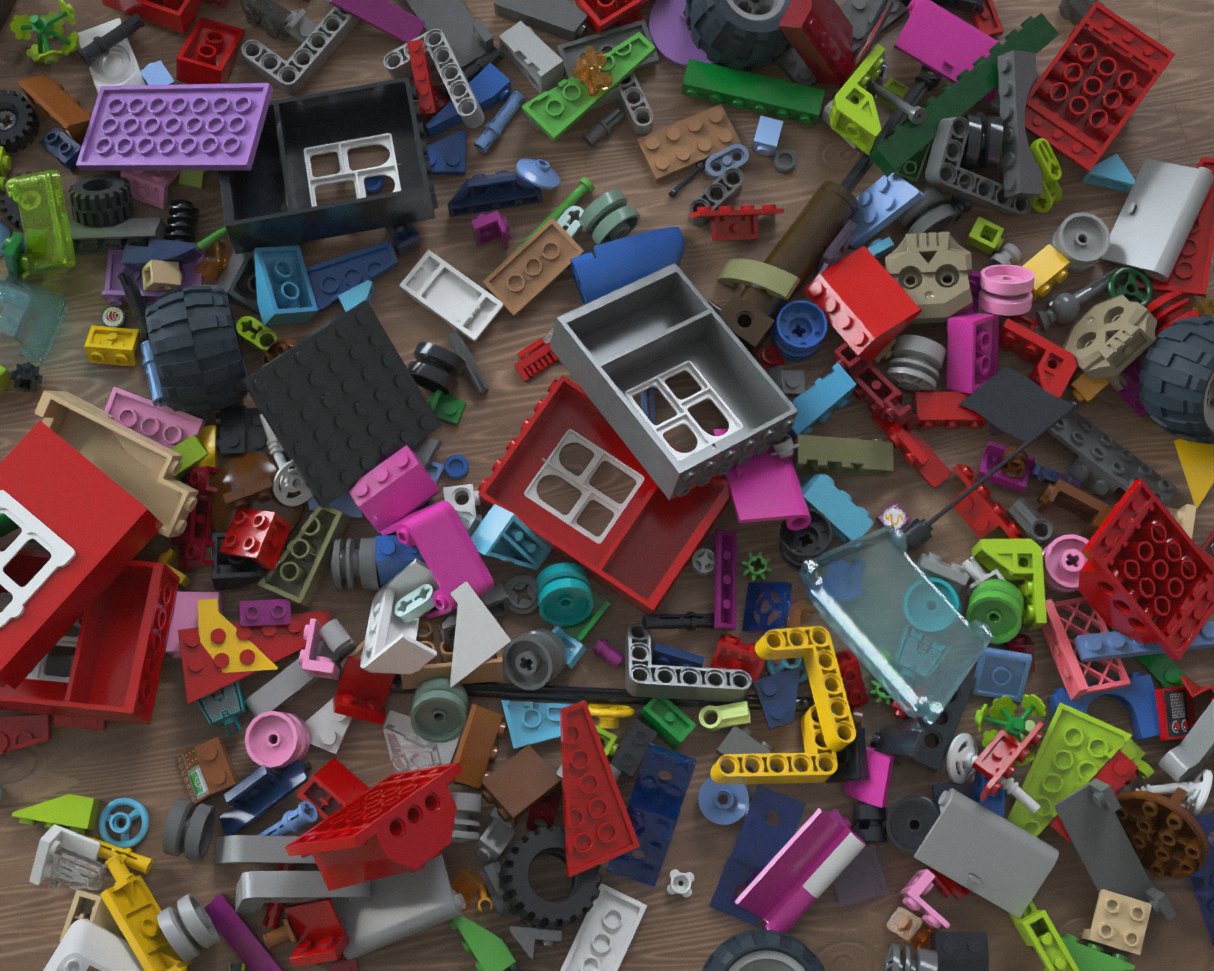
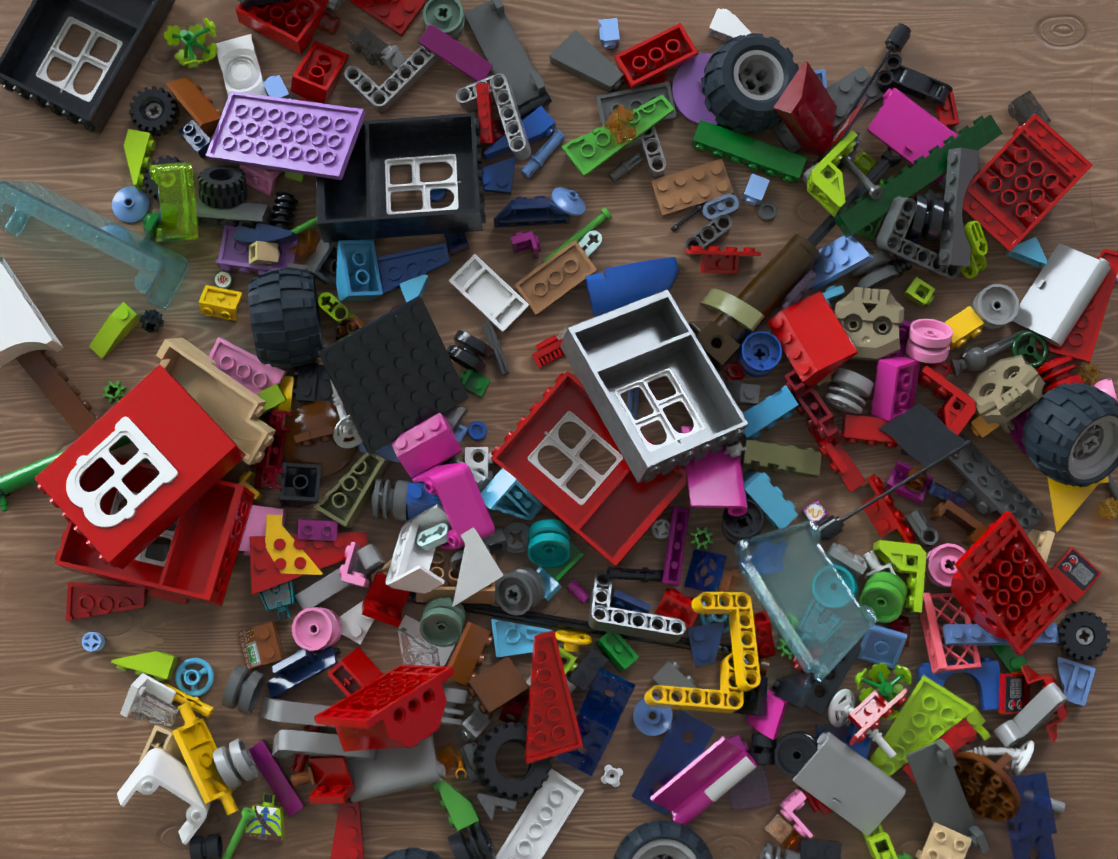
camera: 15 degrees right, 5 degrees up
(101, 45) = (234, 57): black pin -> none
(135, 301) = (241, 270): black pin -> none
(153, 379) = (246, 322): medium blue pin -> none
(256, 536) = (316, 470): red bracket -> none
(293, 820) = (321, 693): medium blue pin -> none
(532, 57) = (575, 104): light grey wedge -> none
(609, 217) = (620, 245): sand green wheel -> none
(728, 715) = (664, 652): yellowish green piece -> none
(1009, 255) = (935, 312): light grey wheel -> none

